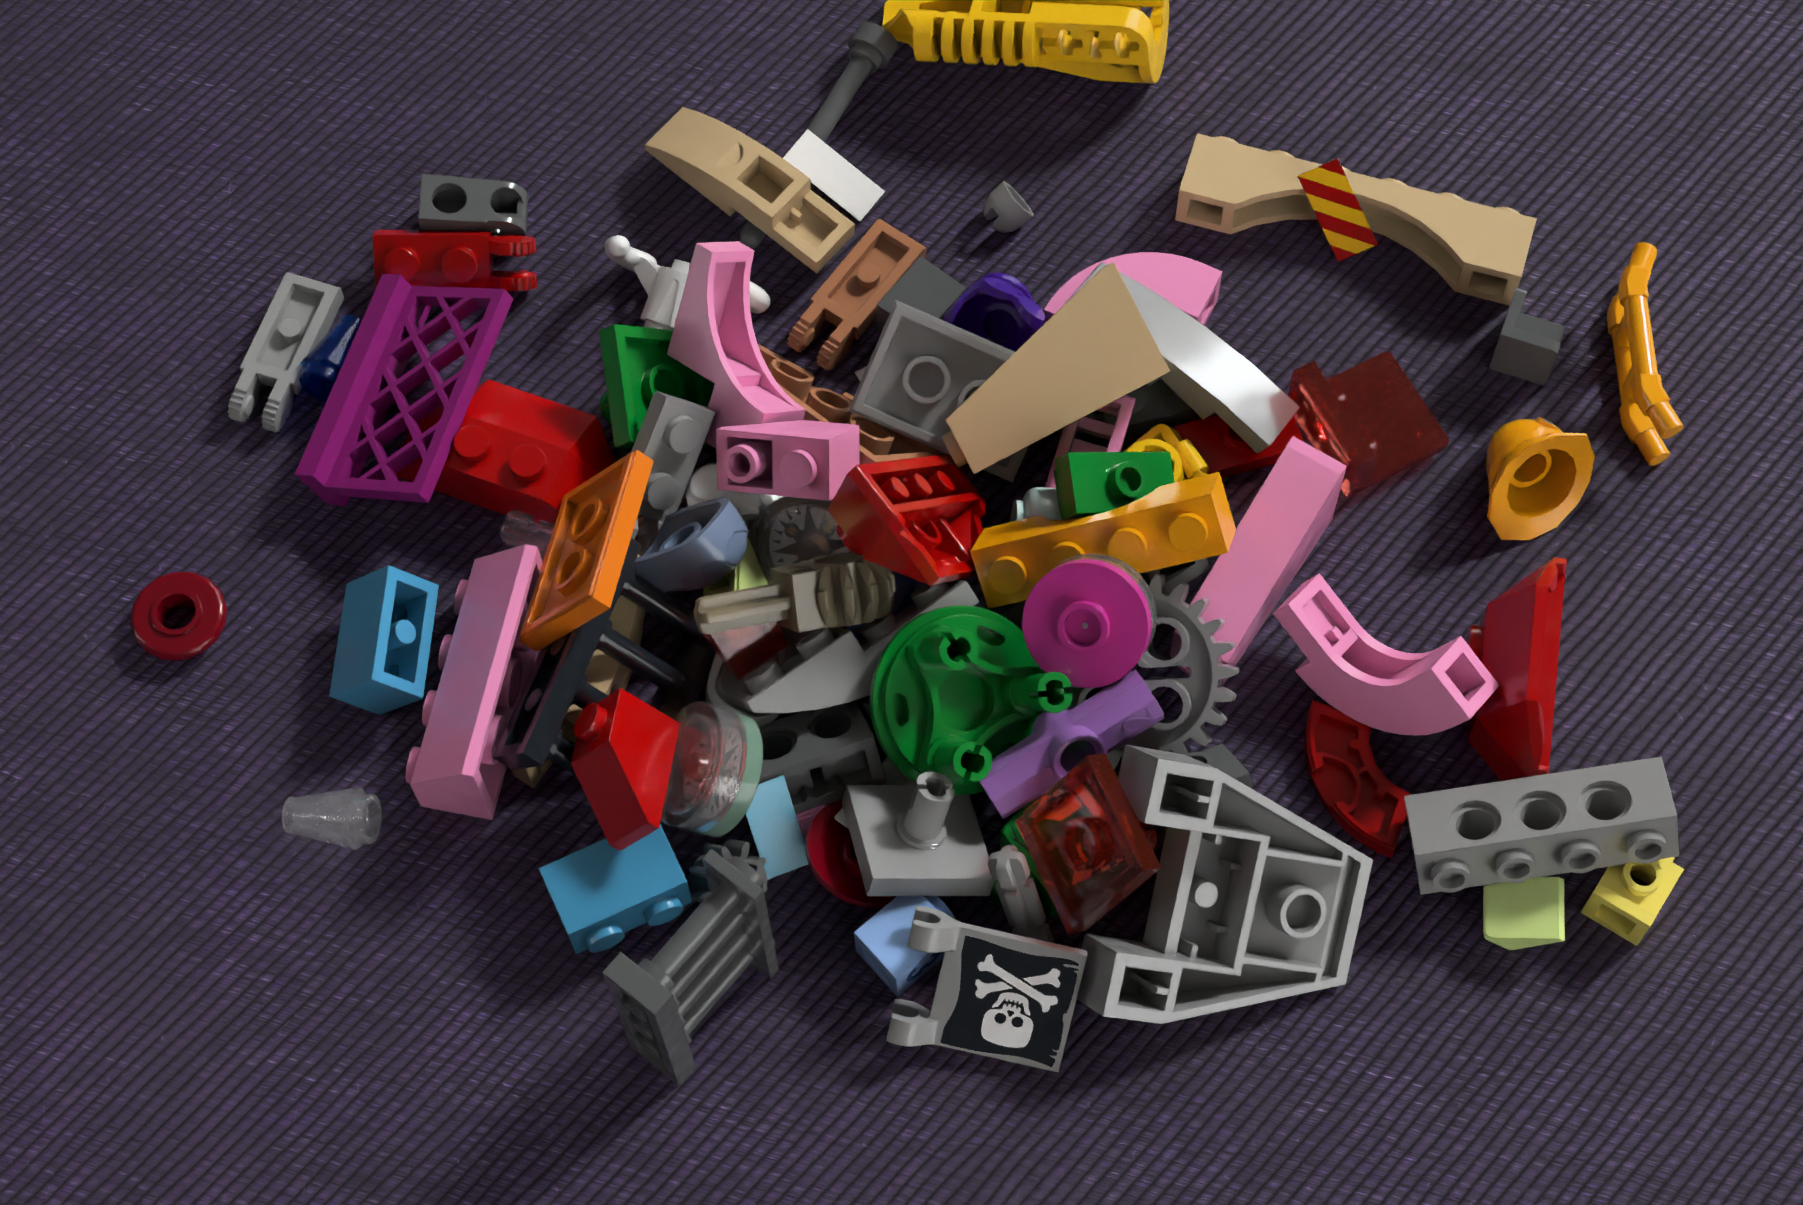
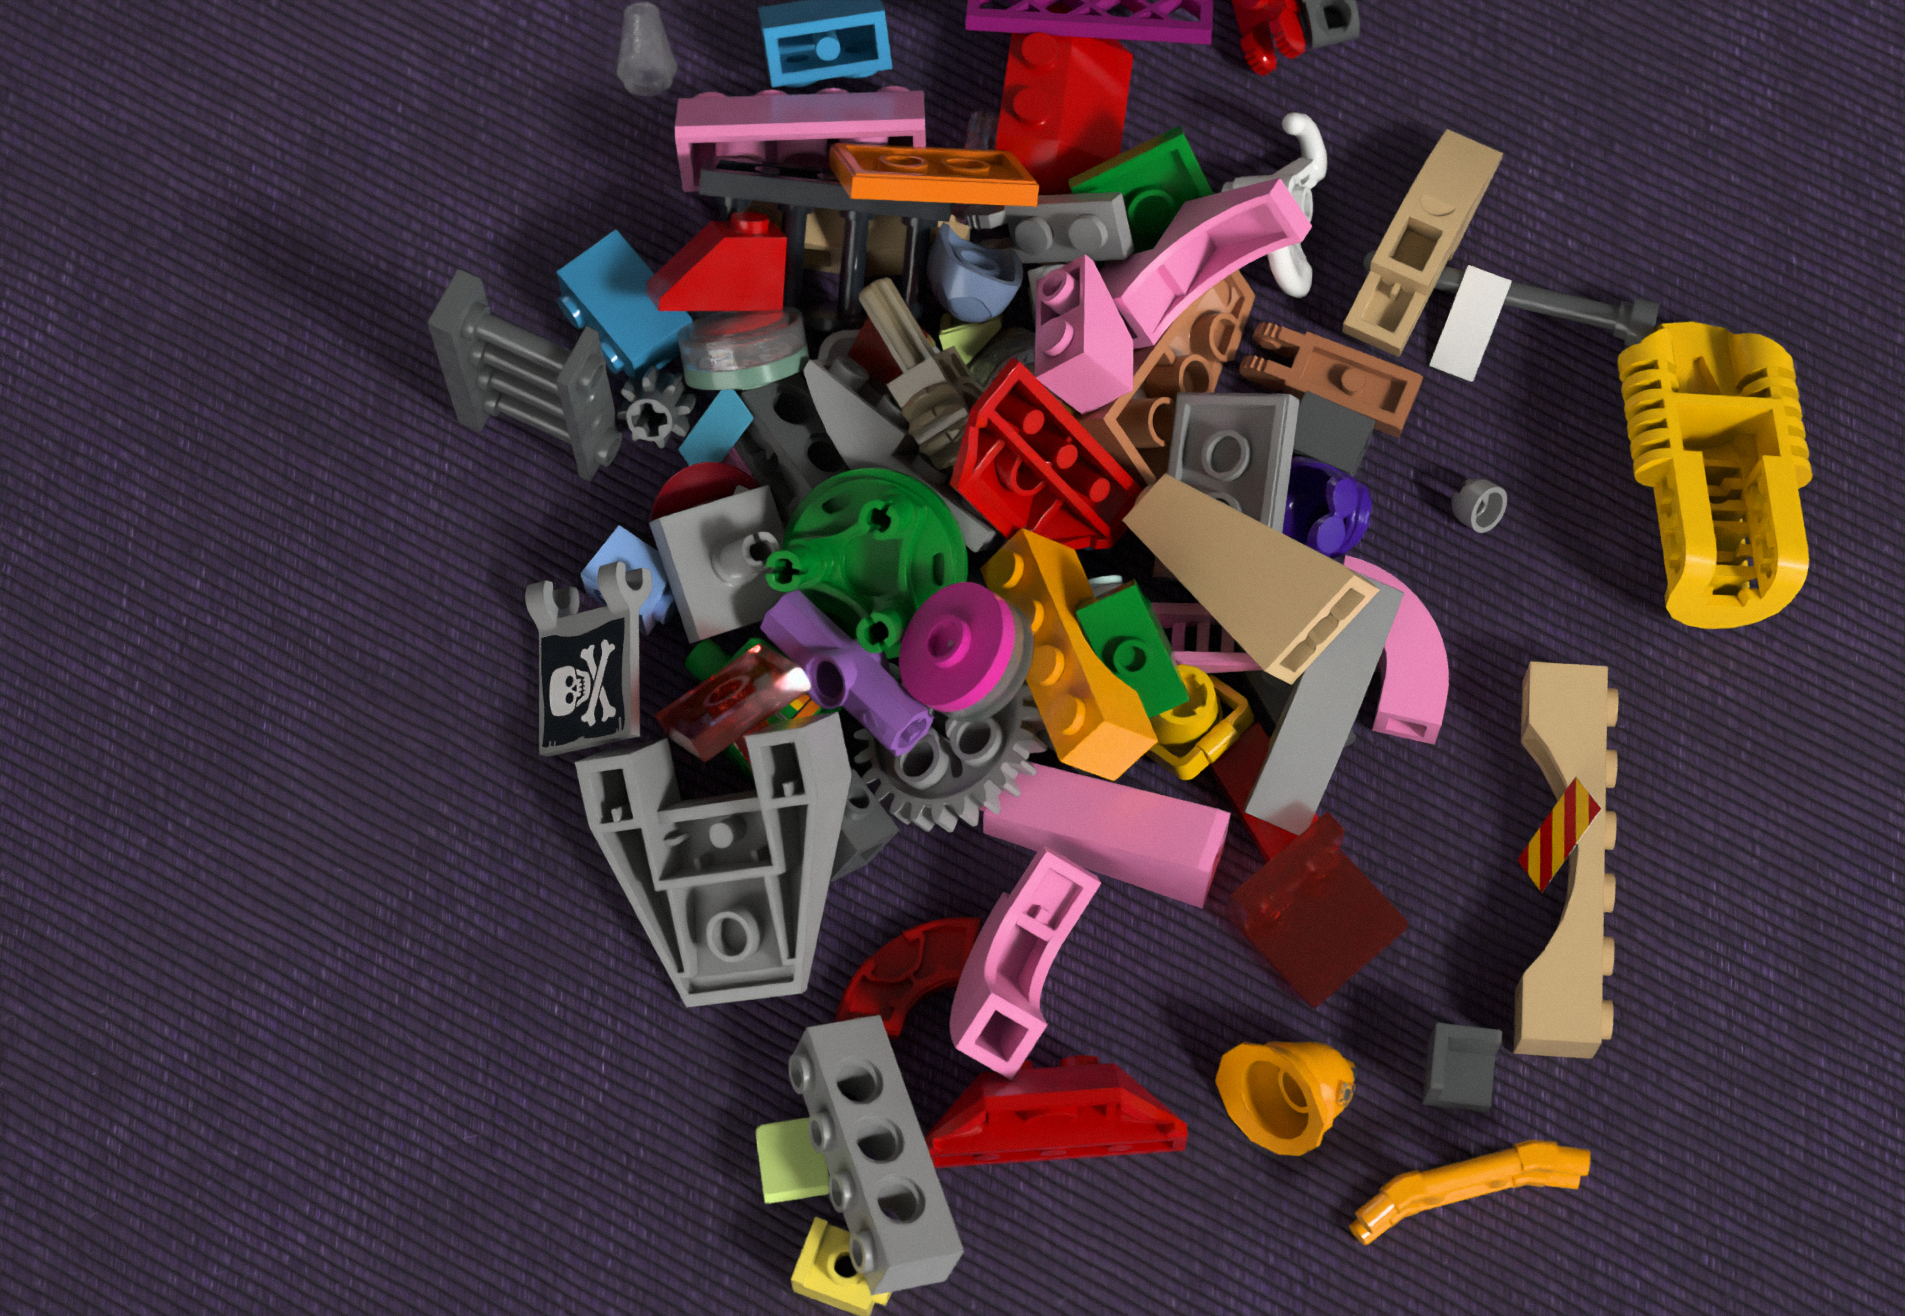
camera: 75 degrees right, 5 degrees up
(1019, 894) = (688, 665): light grey axle -> none

